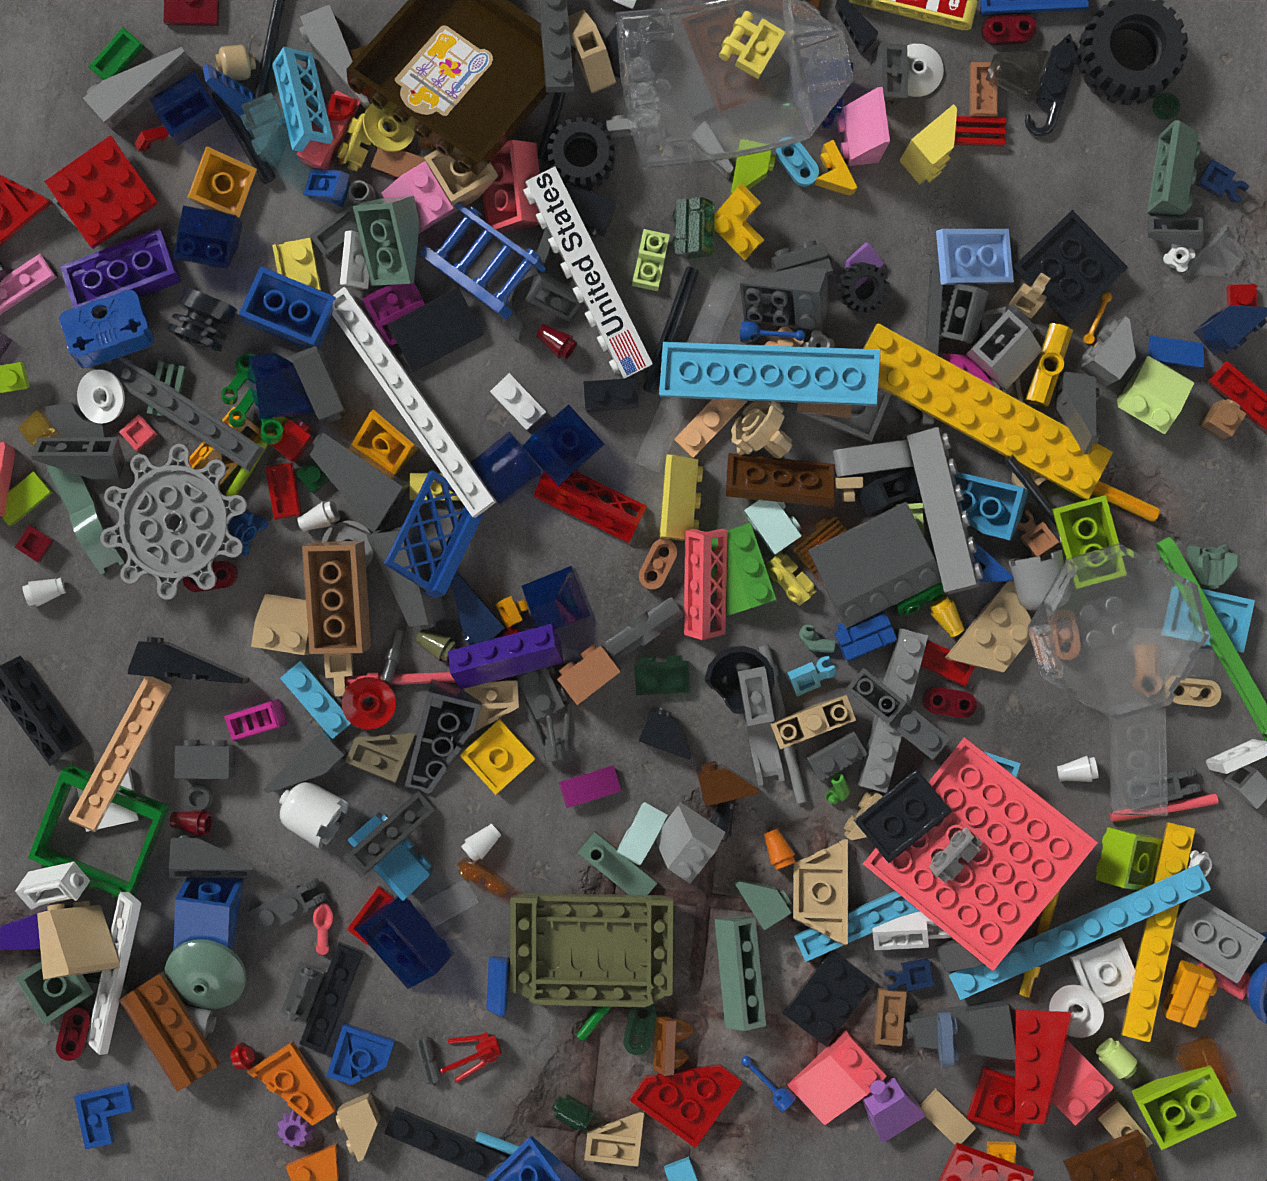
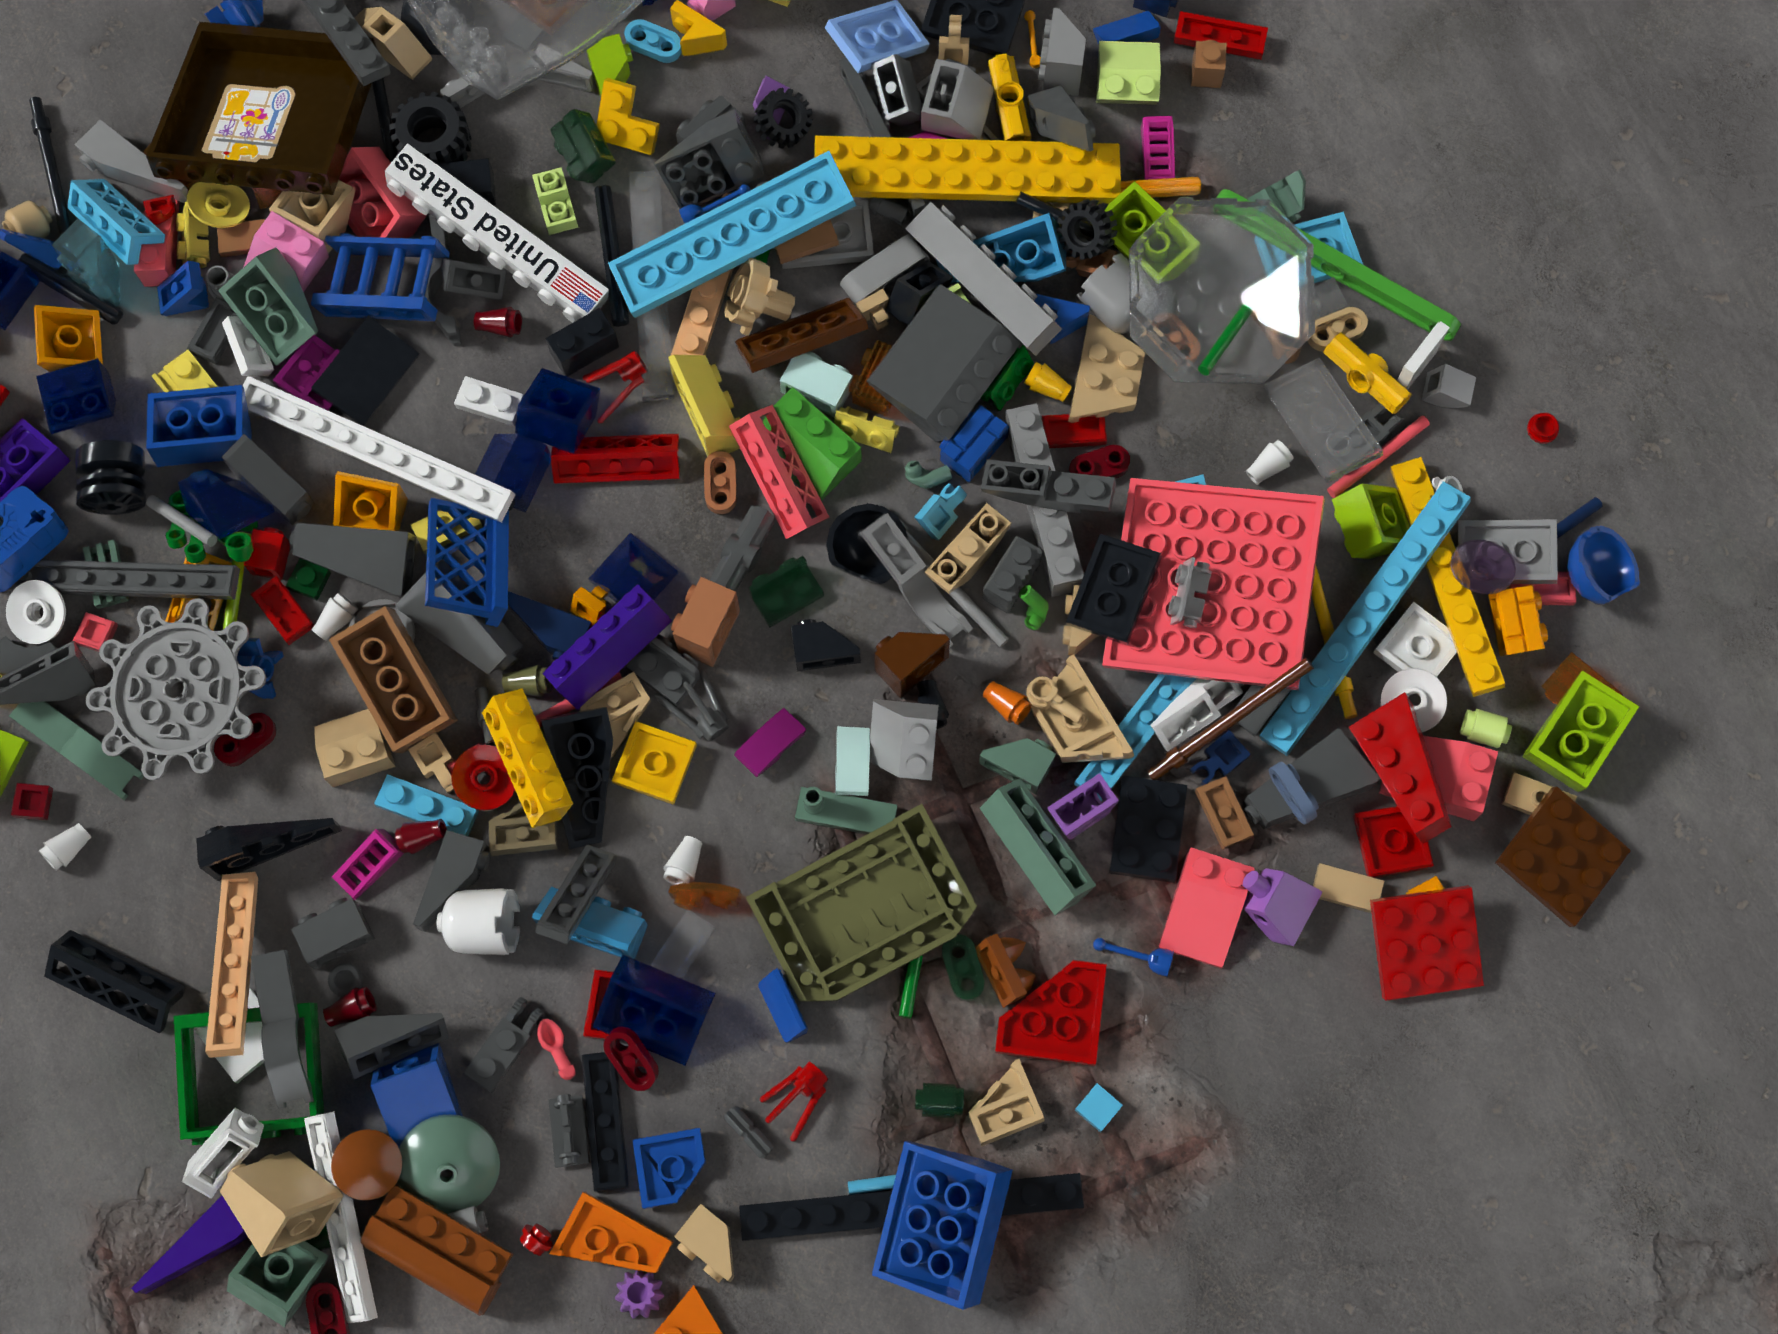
camera: 25 degrees left, 15 degrees down
(132, 819) = (279, 1027): none -> dark grey piece
(146, 953) = (366, 1164): none -> dark orange dish
(239, 384) = (182, 520): none -> light grey bar
(300, 721) = (418, 835): none -> dark red cone
(370, 967) = (628, 1058): none -> dark red plate
(404, 711) = (527, 758): none -> yellow brick
(636, 437) = (628, 367): none -> red plant
(786, 968) = (1083, 807): none -> medium lavender torso
(808, 861) = (1043, 693): none -> tan plate
(881, 960) = (1179, 755): none -> reddish brown bar
(1058, 515) = (1102, 229): none -> black tyre
(1099, 663) = (1224, 340): none -> green bar
(1160, 453) = (1158, 129): none -> dark pink slope
(1193, 745) = (1367, 373): none -> yellow piece
(1198, 945) = (1486, 557): none -> clear purple dish

